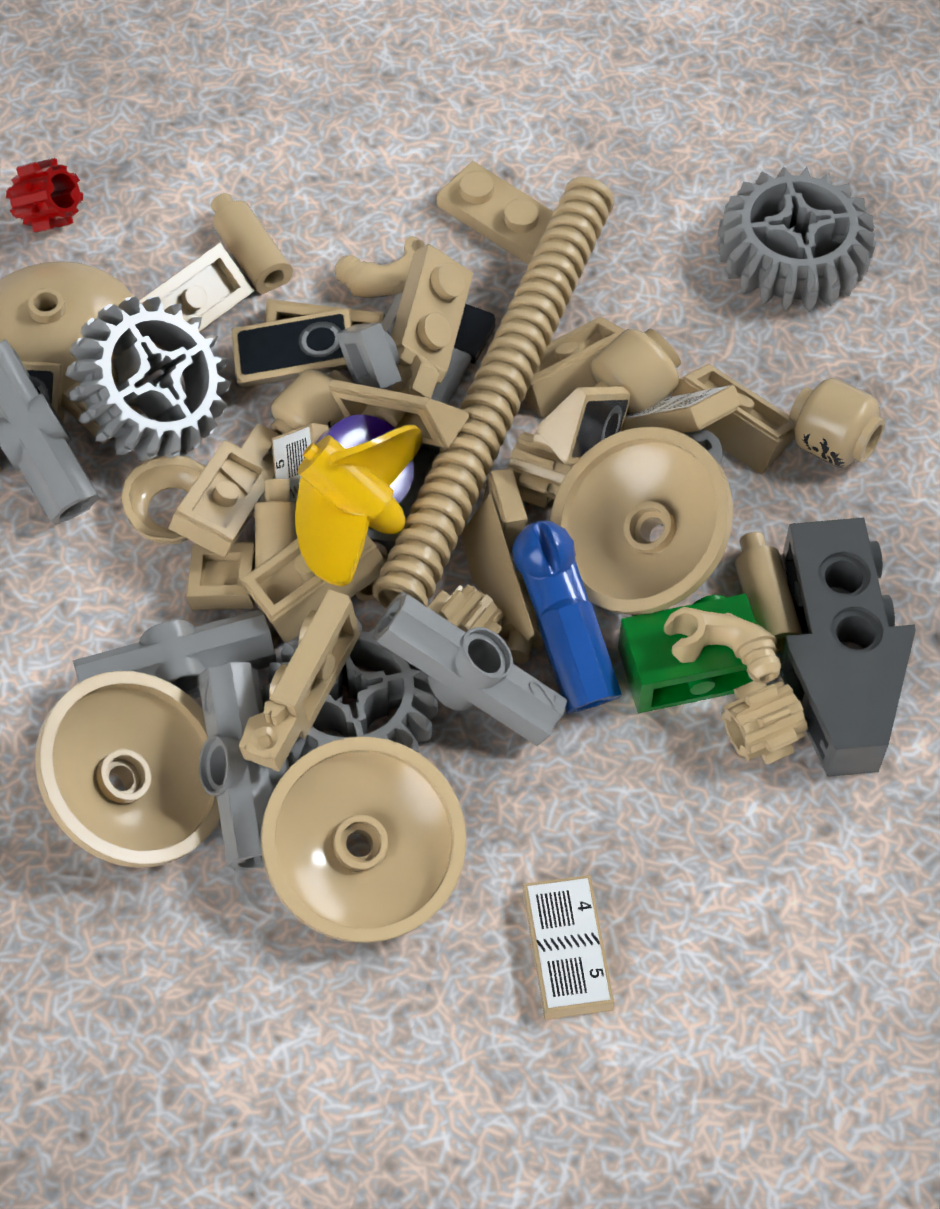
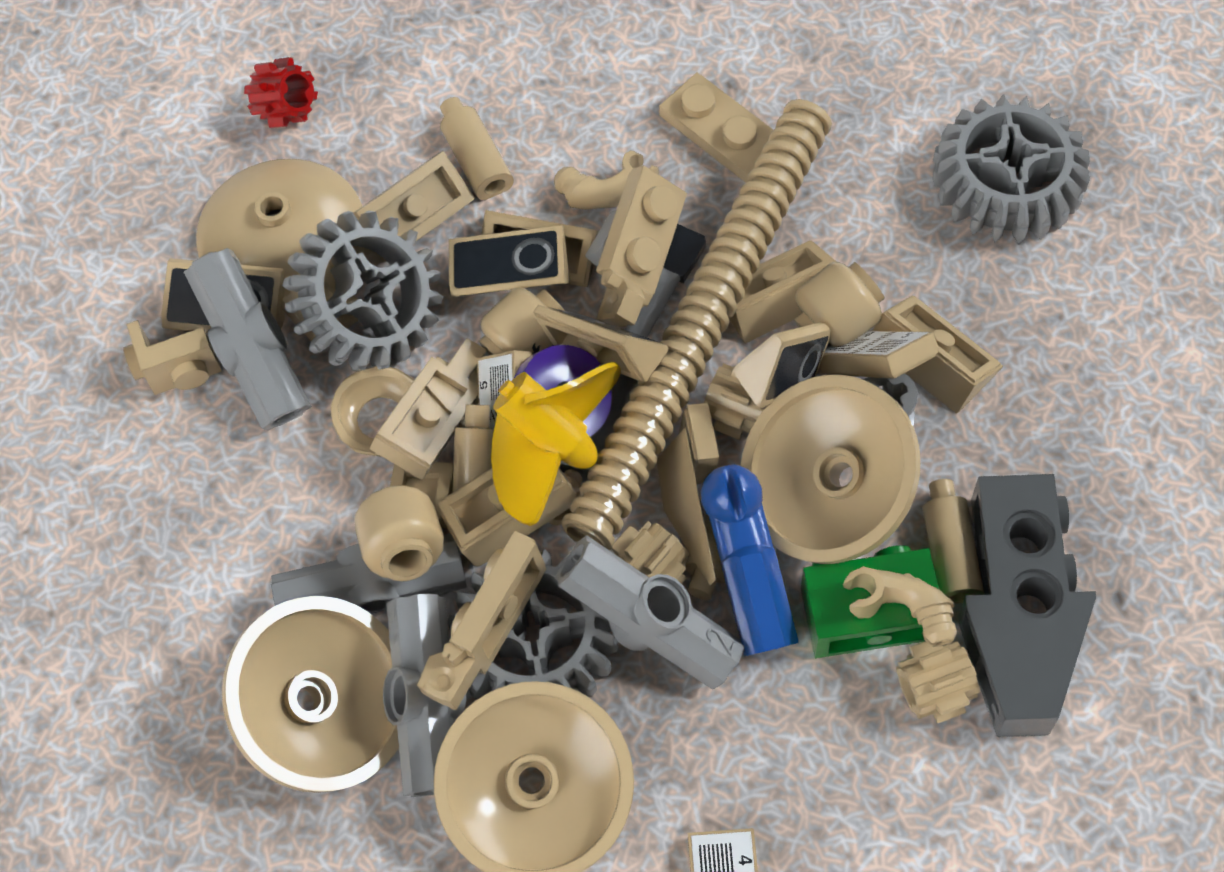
camera: 10 degrees right, 5 degrees up
(206, 603) = (398, 533): none -> tan head
(370, 355) = (577, 279): light grey plate -> none
(837, 422) = (1036, 368): tan head -> none

